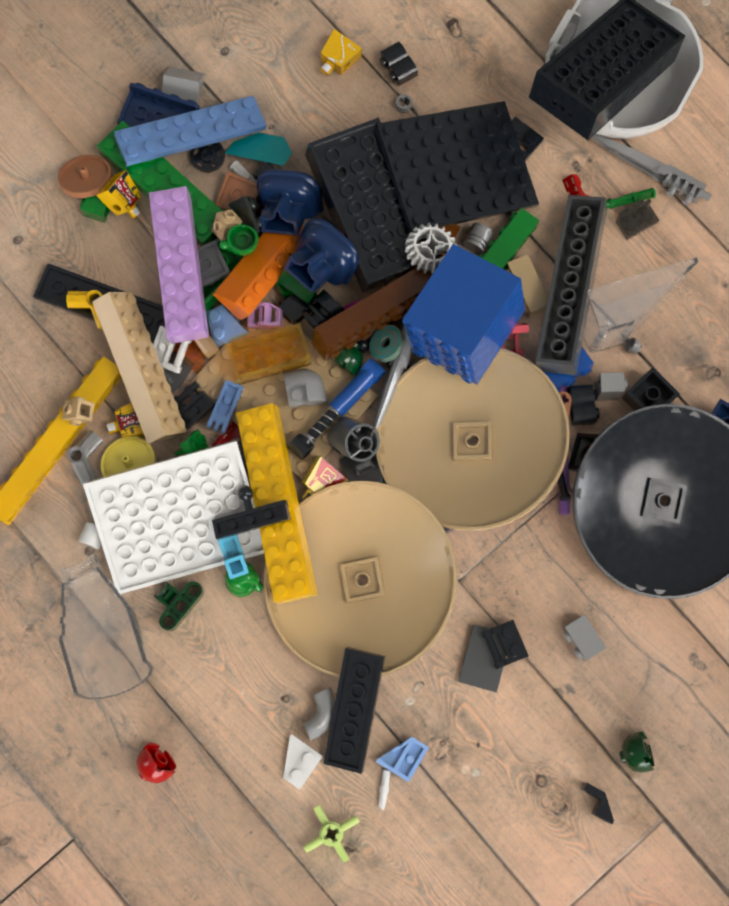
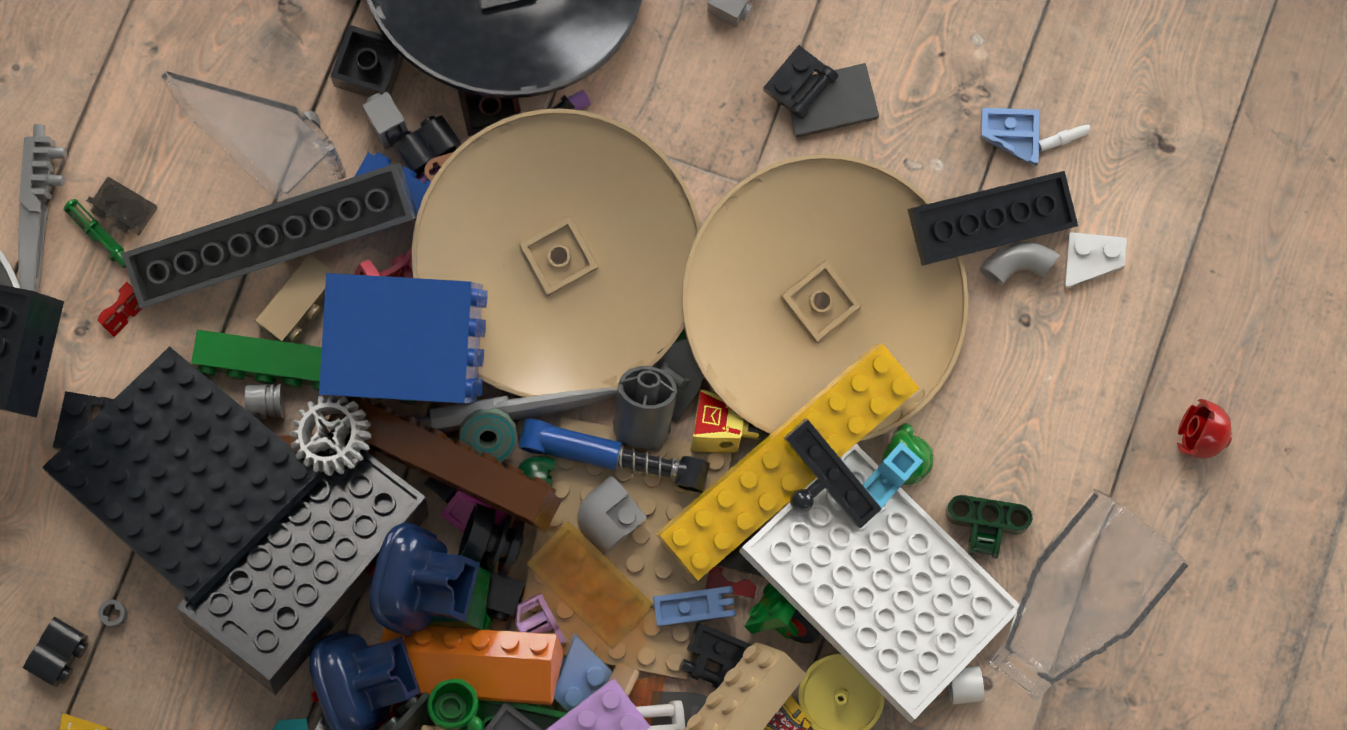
camera: 115 degrees left, 0 degrees up
(326, 824) = (1161, 159): yellowish green bar -> none

